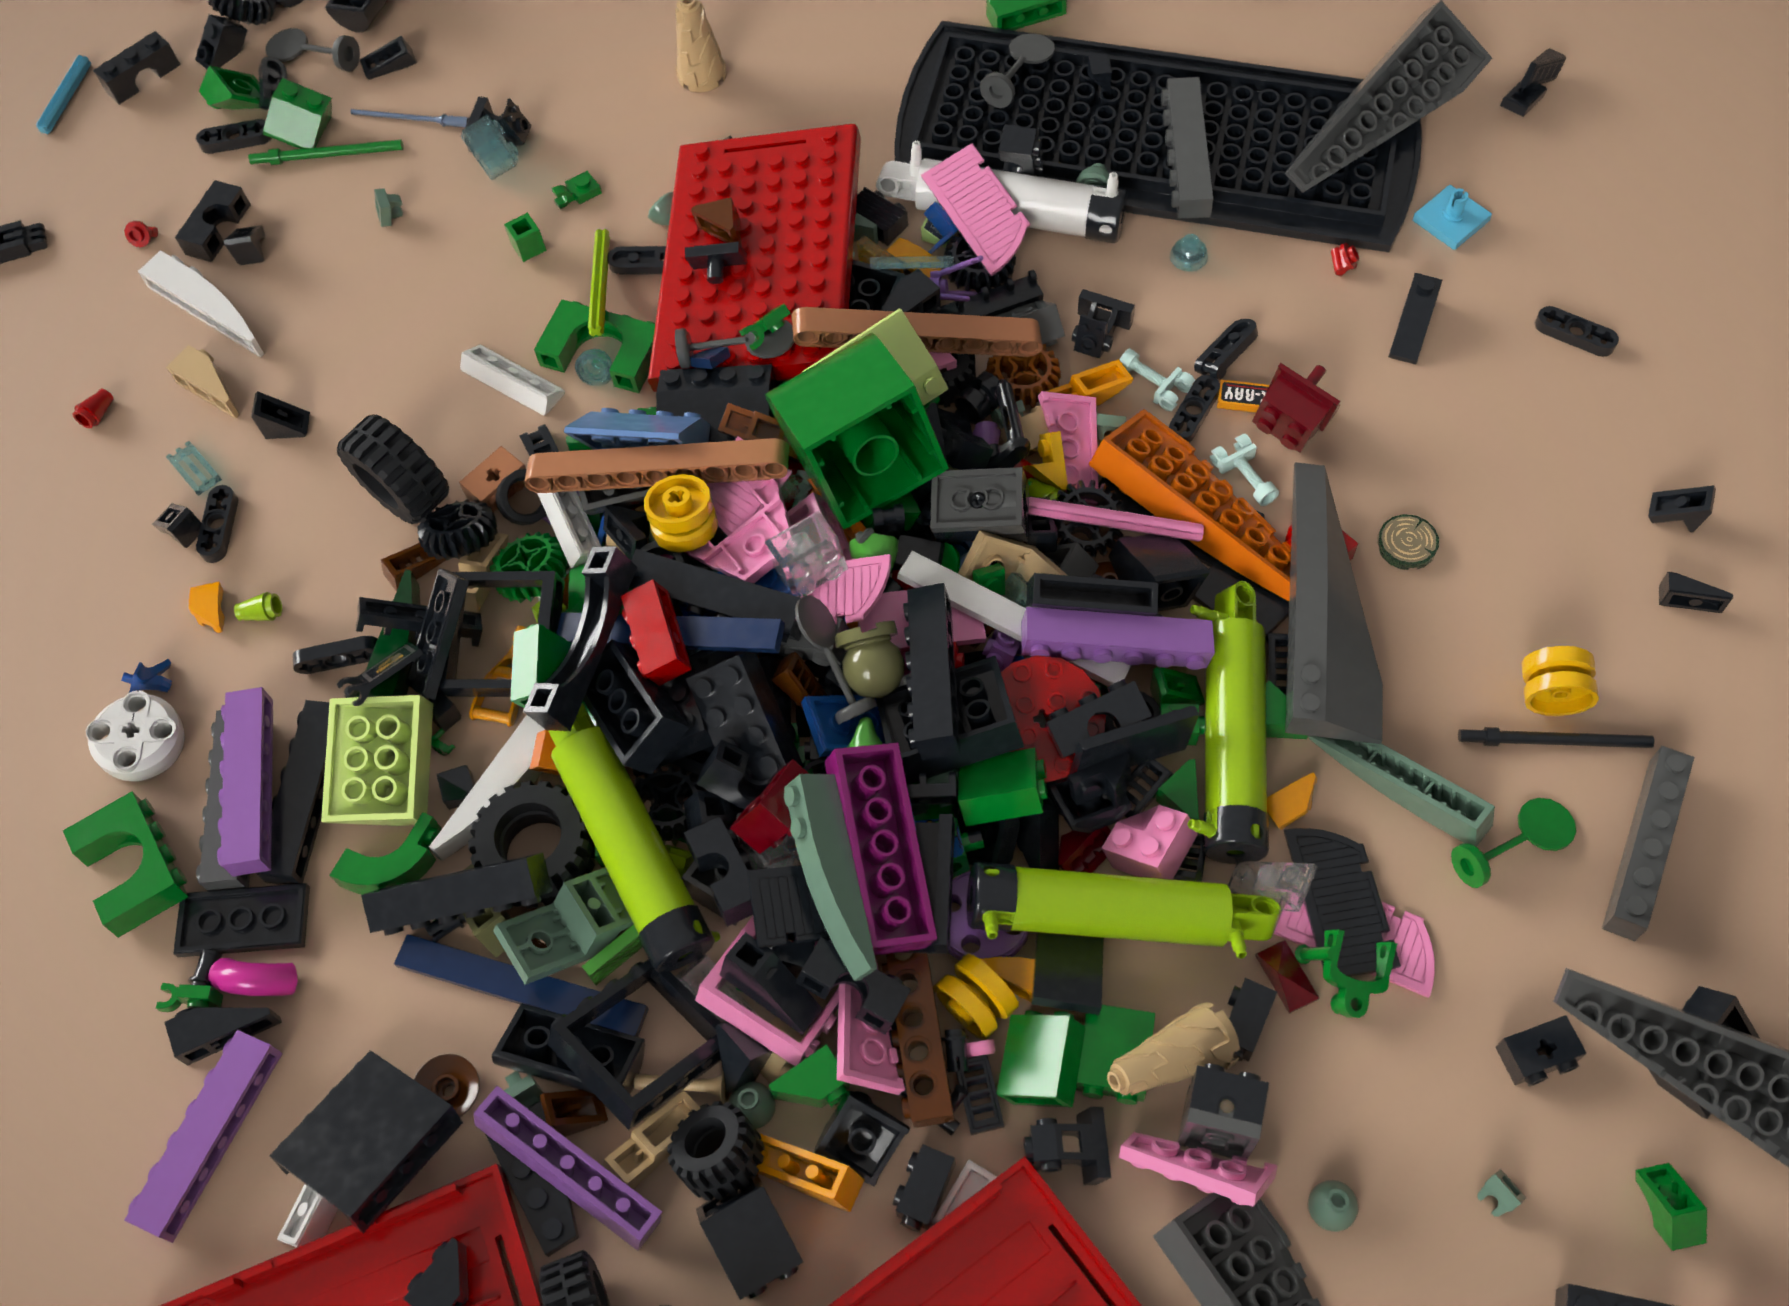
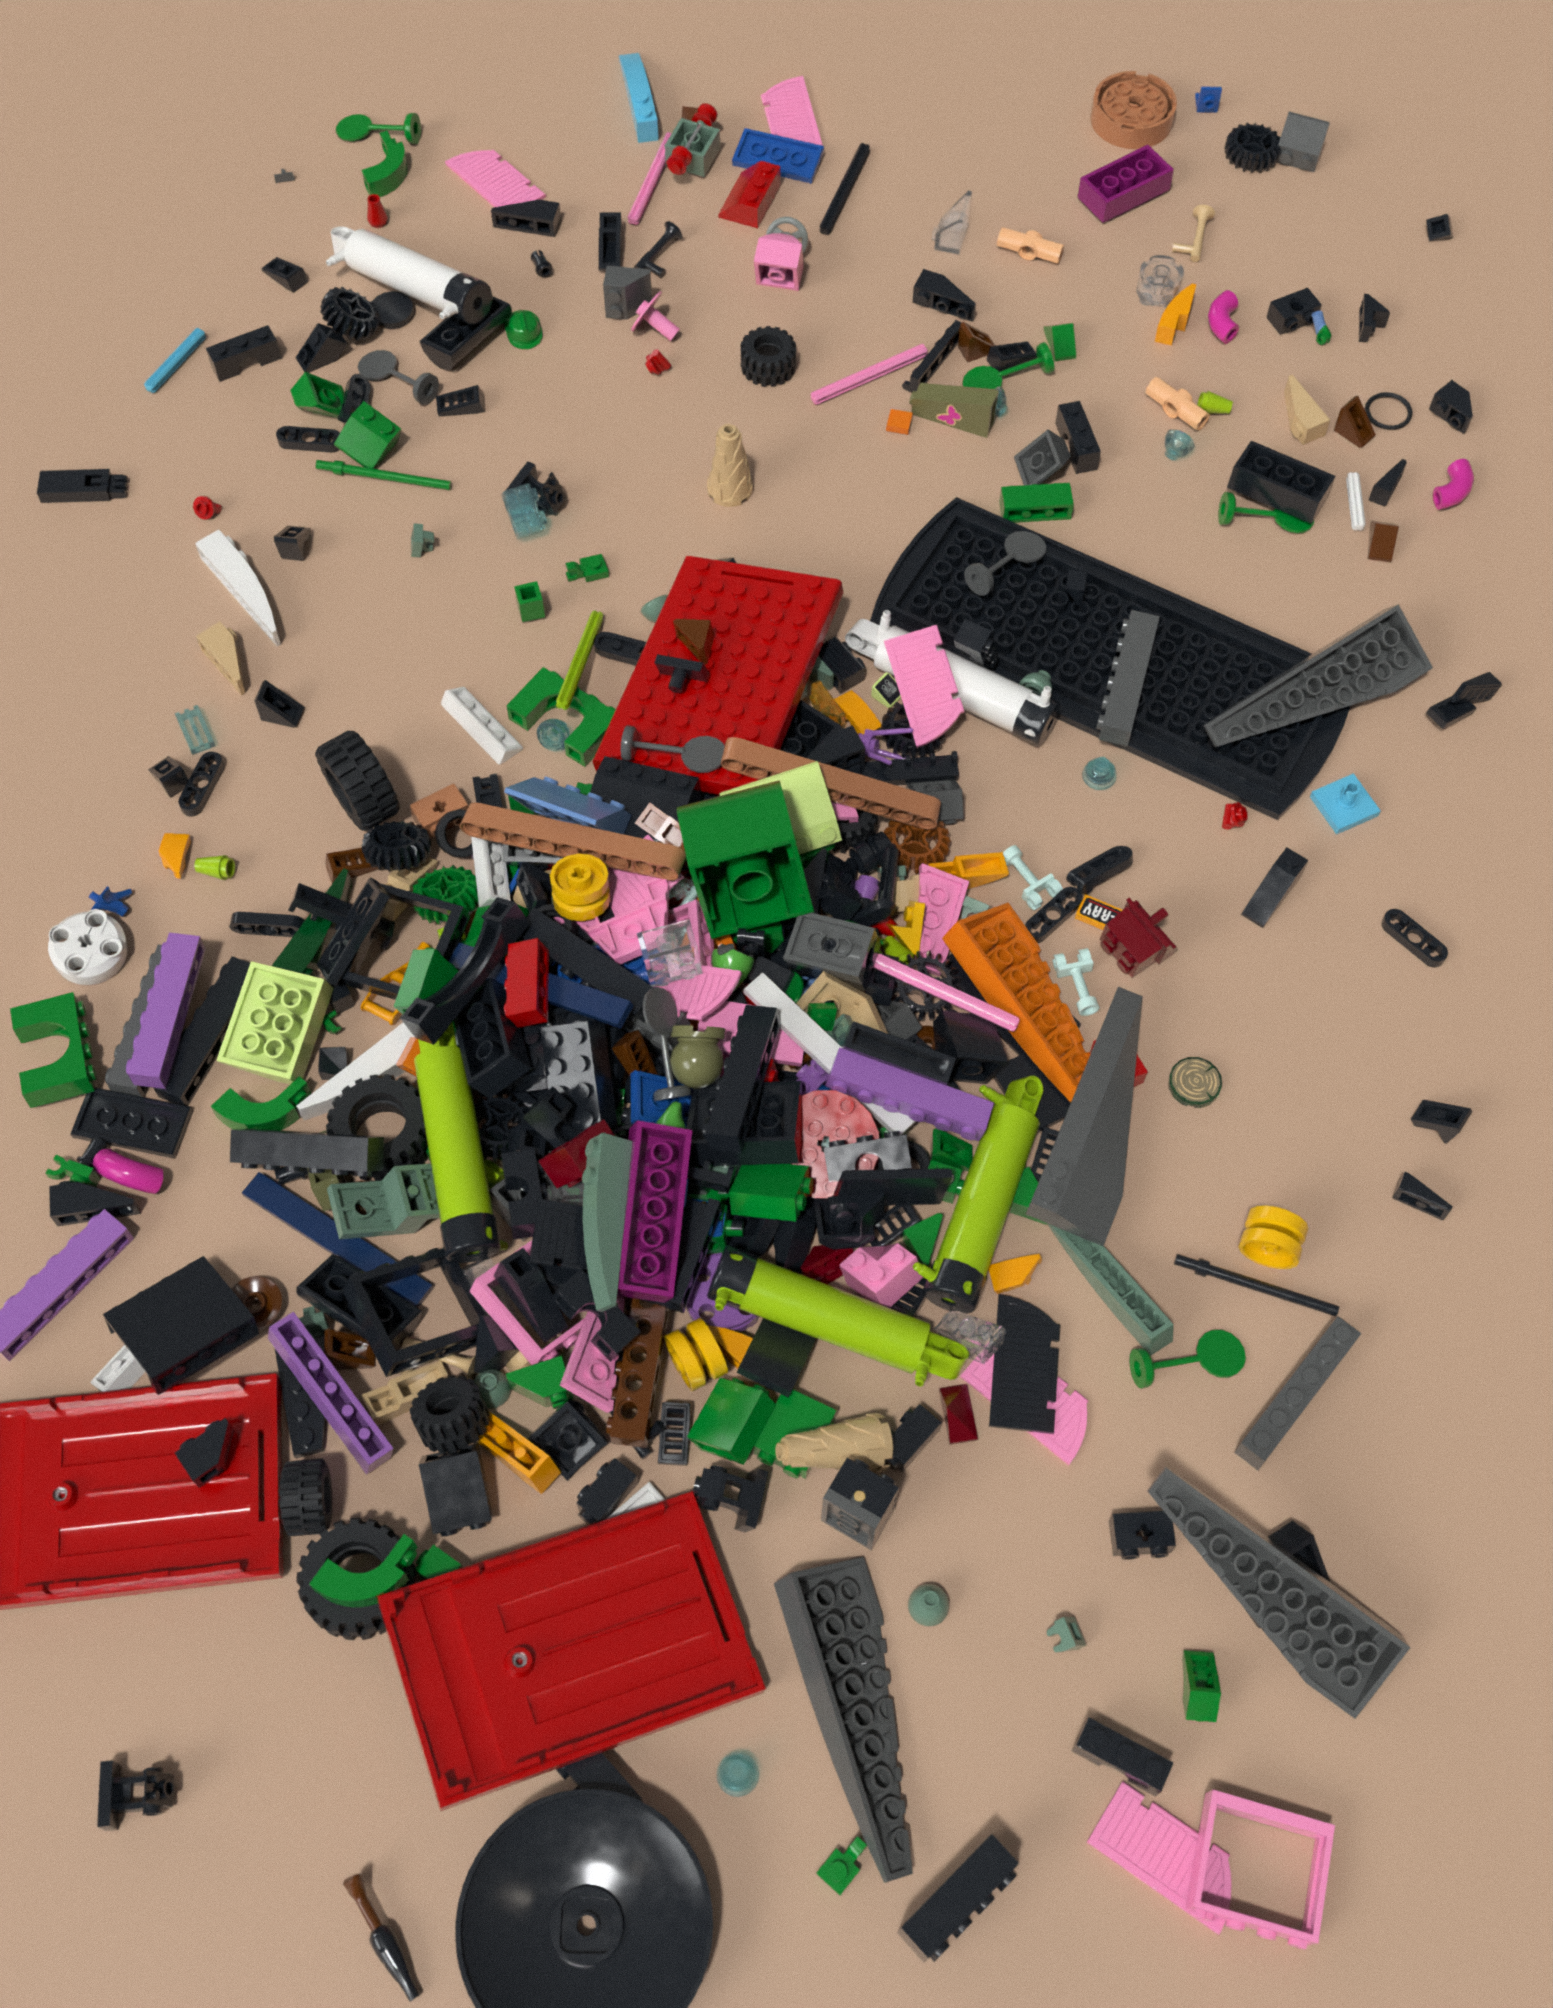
camera: 10 degrees right, 0 degrees up
(92, 409) = (125, 655): red cone -> none
(219, 204) = (280, 499): black arch -> none
(379, 672) = (297, 950): black flag -> none
(444, 120) = (492, 472): sand blue piece -> none
(613, 955) = (416, 1237): bright green tile -> none
(710, 358) = (648, 758): dark blue tile -> none
(771, 321) = (708, 741): green plate -> none
(918, 262) = (849, 718): clear light blue tile -> none
(942, 223) = (891, 688): blue bracket -> none
(956, 1047) = (665, 1390): black pin -> none
(980, 1048) = (680, 1396): bright pink tile -> none
(1097, 325) = (990, 823): black tile -> none
(1198, 1167) = (829, 1542): bright pink wing -> none
(1353, 994) = (1003, 1440): green piece -> none

